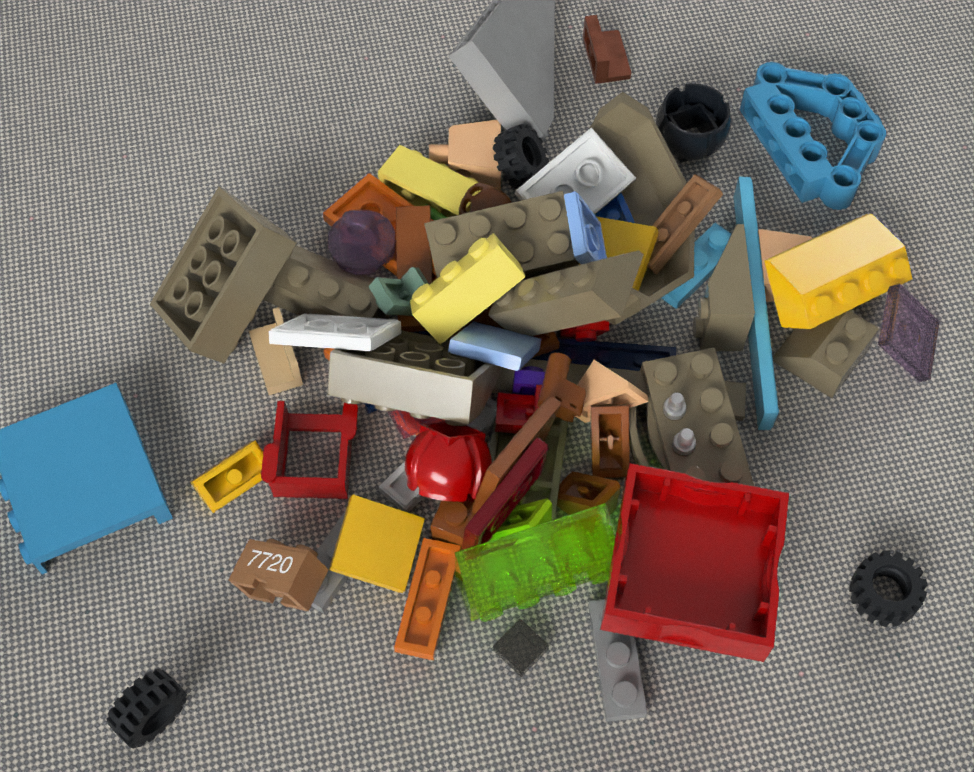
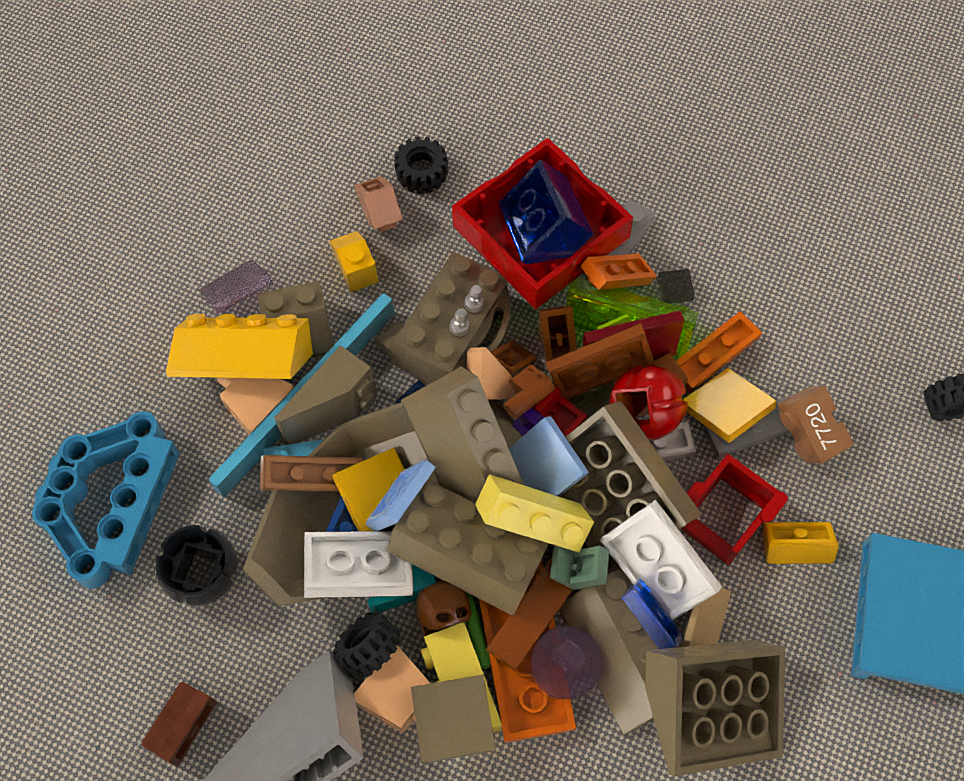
camera: 140 degrees left, 5 degrees up
(339, 297) = (652, 616): none -> clear blue tile
(414, 147) = (452, 719): none -> dark tan tile
(582, 591) = (618, 271): none -> orange plate
(692, 552) = (544, 216): none -> clear blue slope
(845, 440) = (355, 261): none -> yellow slope
(884, 511) = (379, 203): none -> nougat slope

